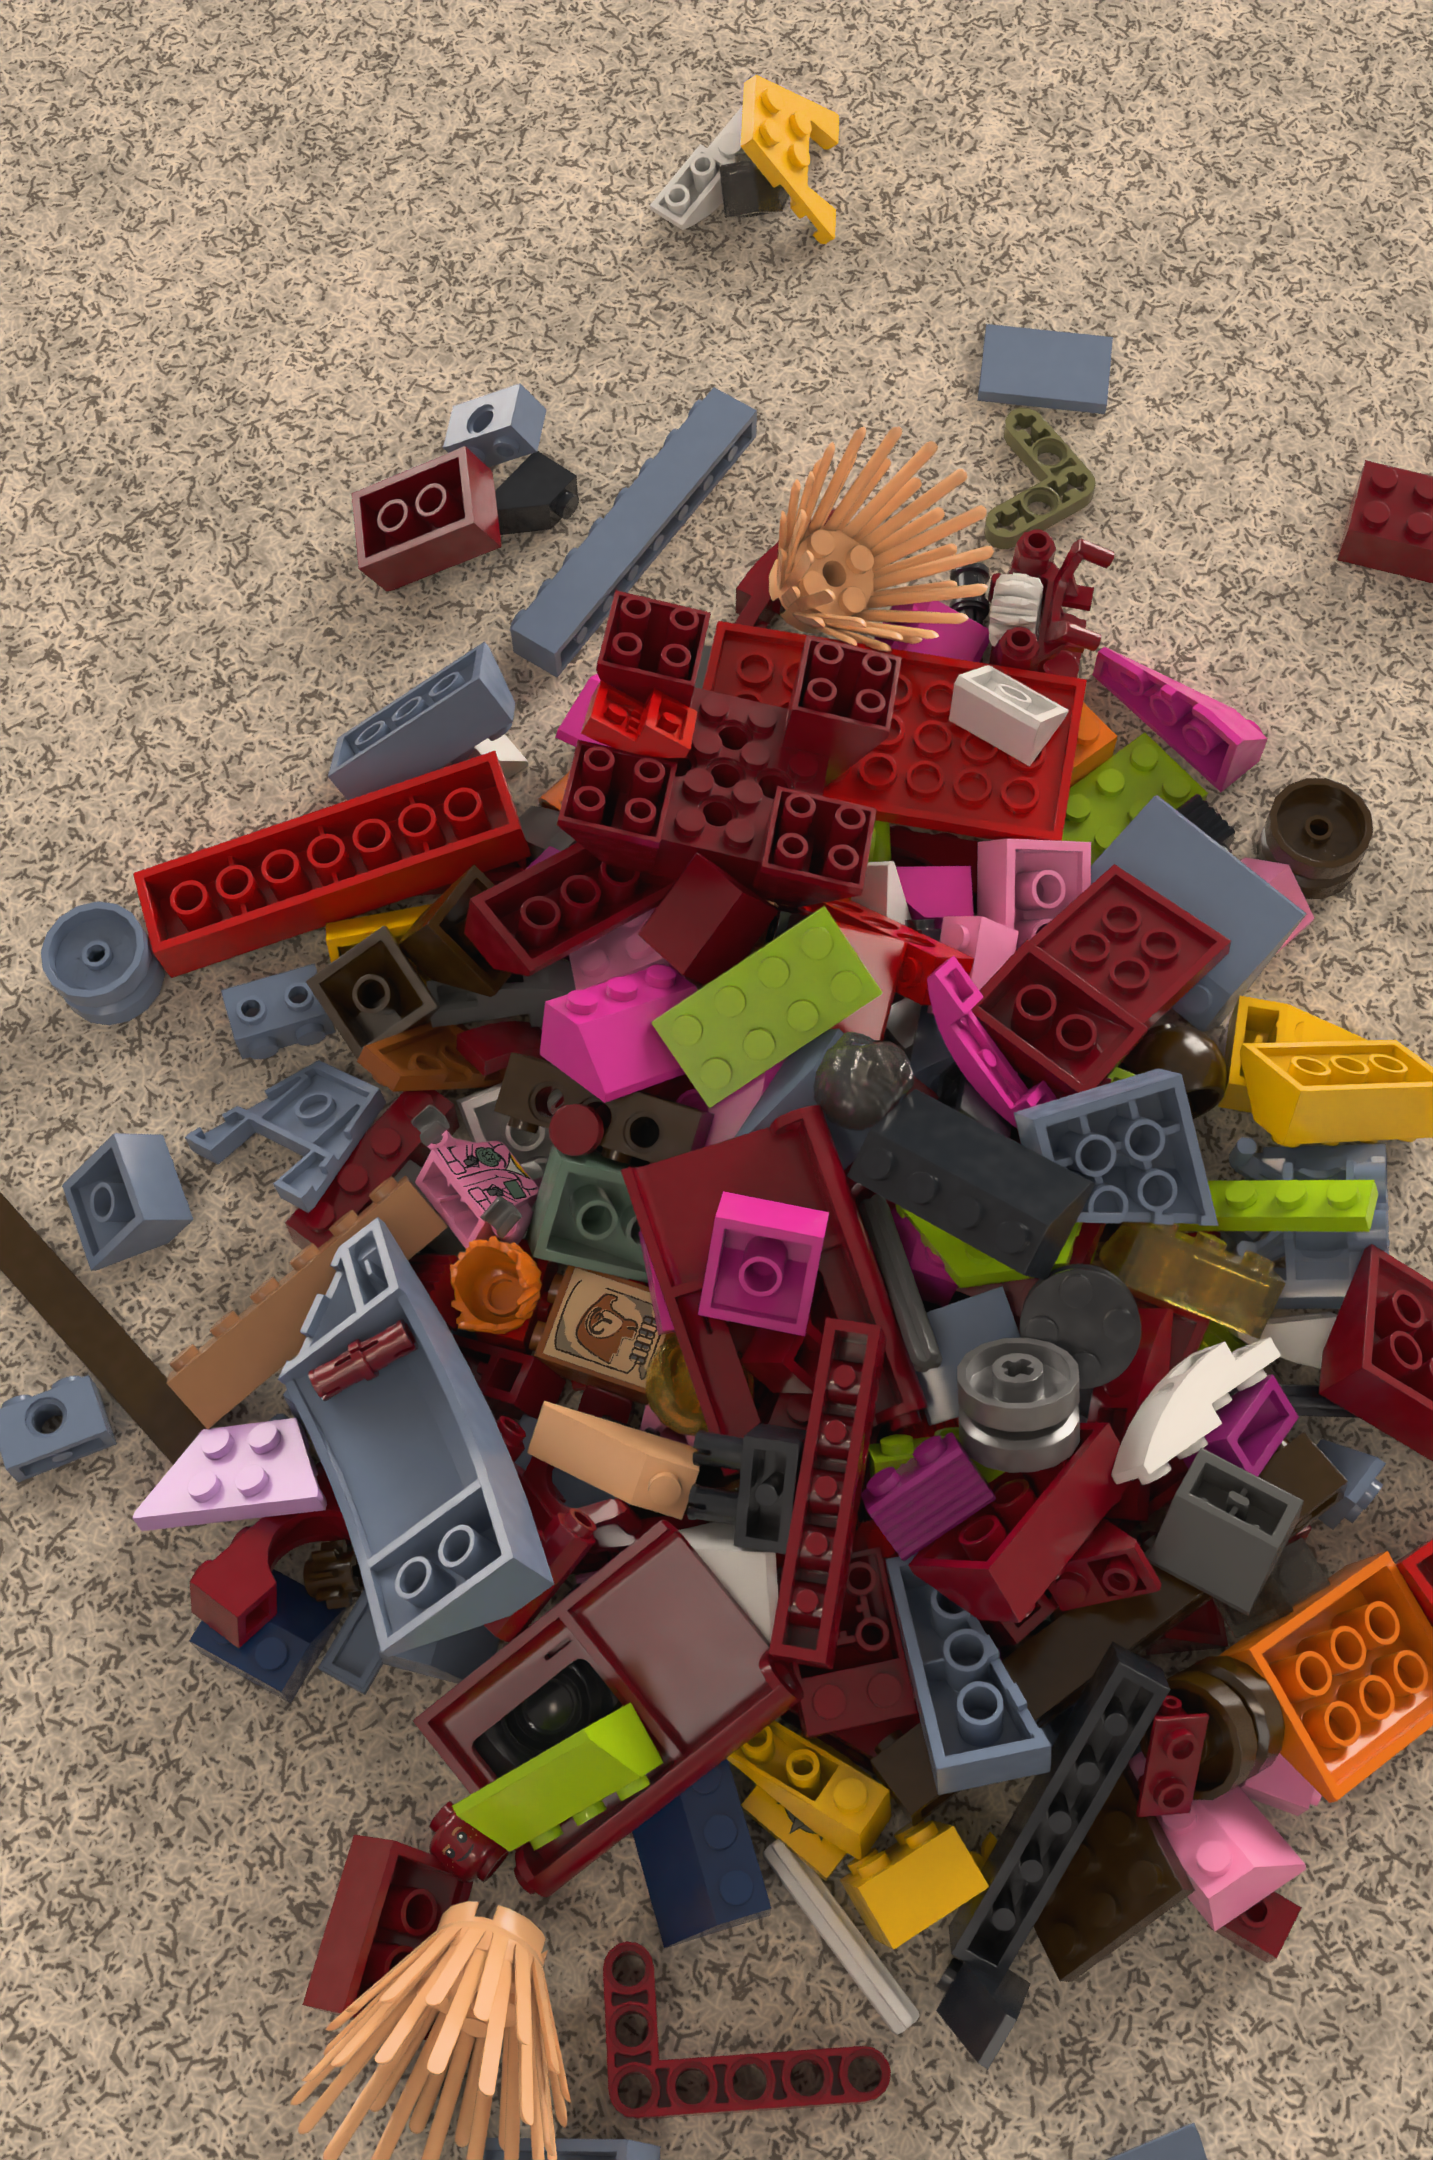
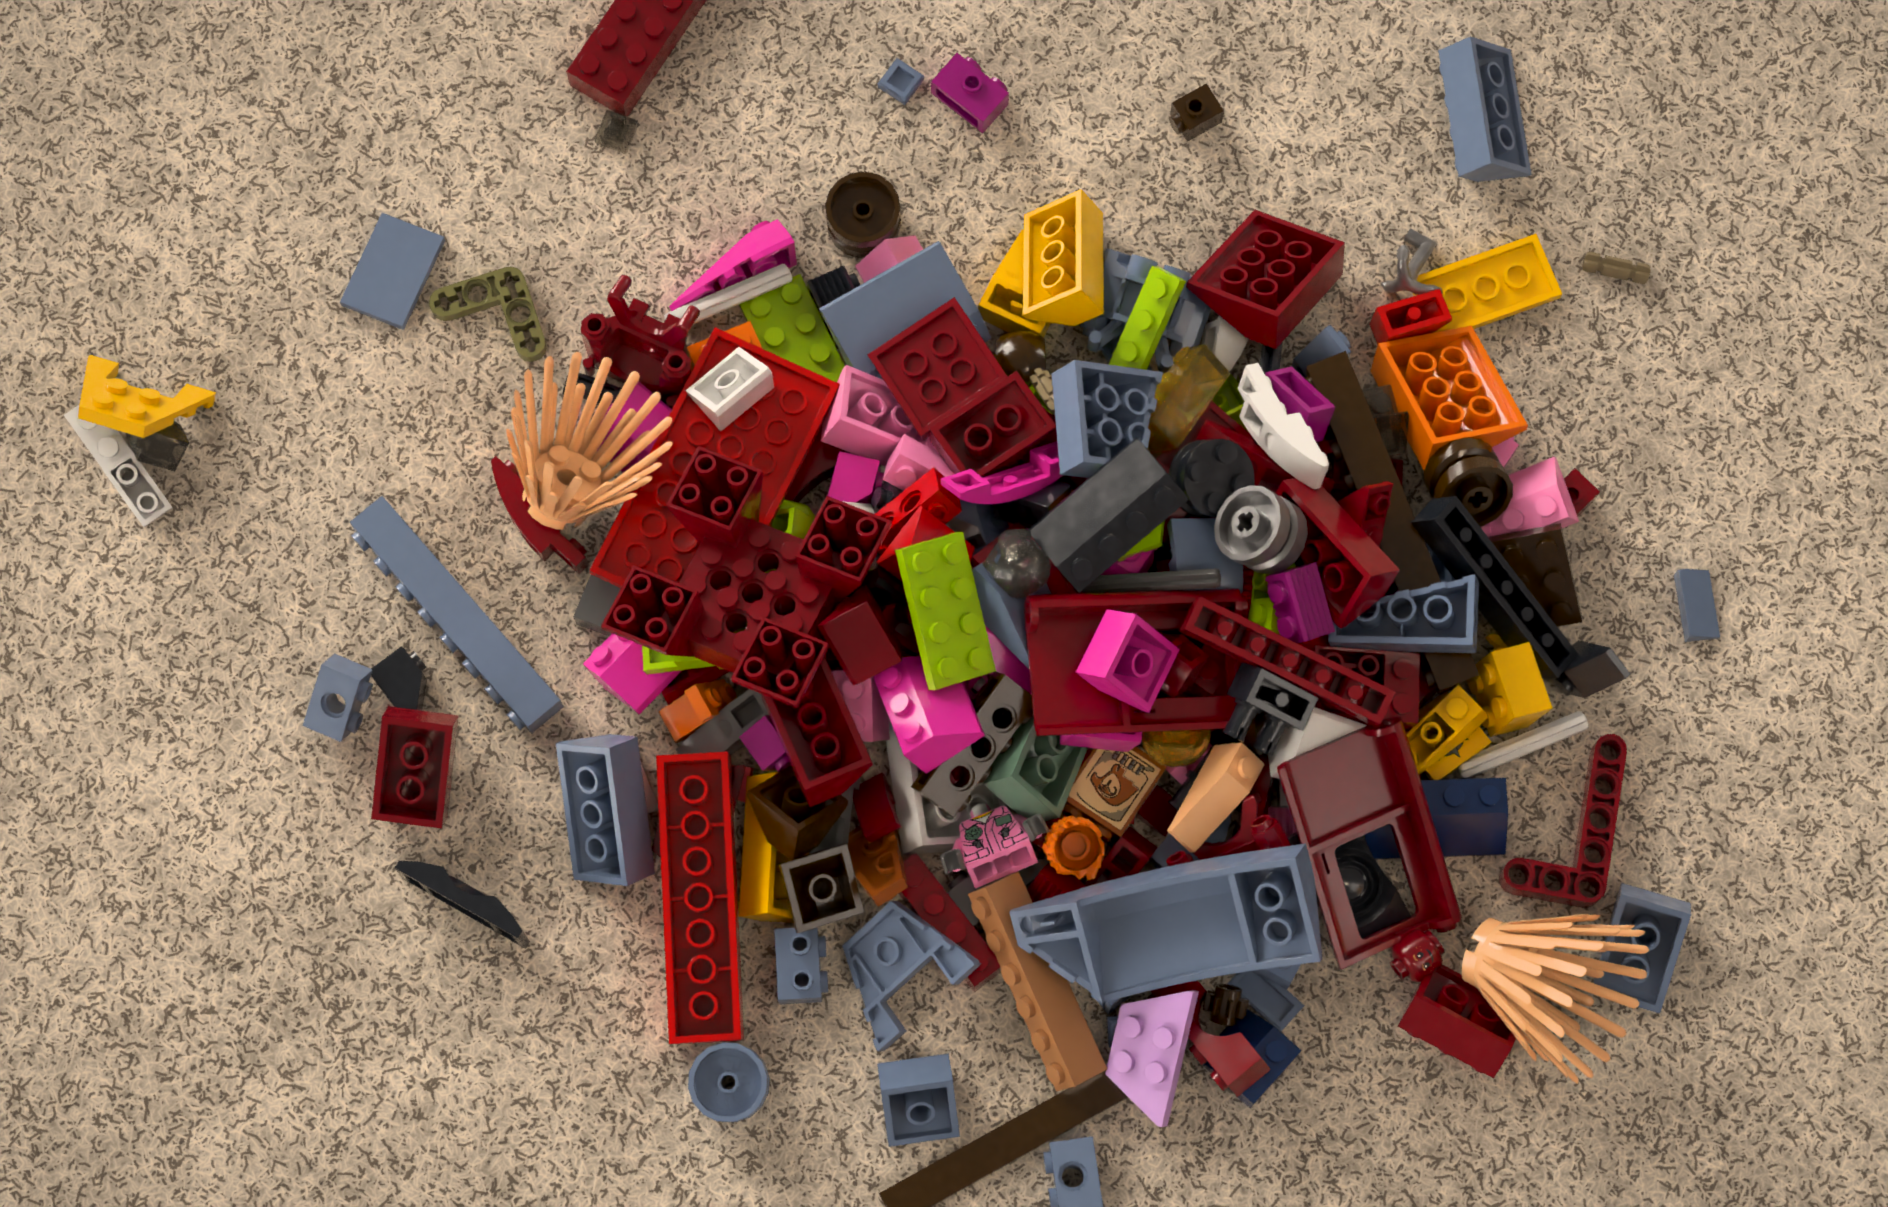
camera: 75 degrees left, 10 degrees up
(272, 621) = (464, 898): none -> black slope
(363, 1360) = (1109, 941): dark red pin -> none
(564, 1783) = (1405, 879): lime slope -> none
(576, 1130) = (990, 761): dark red piece -> none
(650, 729) = (719, 635): red slope -> none
(1015, 604) = (634, 354): white gear -> none
(1143, 714) = (738, 293): none -> white axle
(1171, 1760) = (1488, 512): dark red hinge -> none
(1225, 1531) = (1364, 433): dark grey slope -> none
(1314, 550) = (616, 131): none -> clear smoke tile

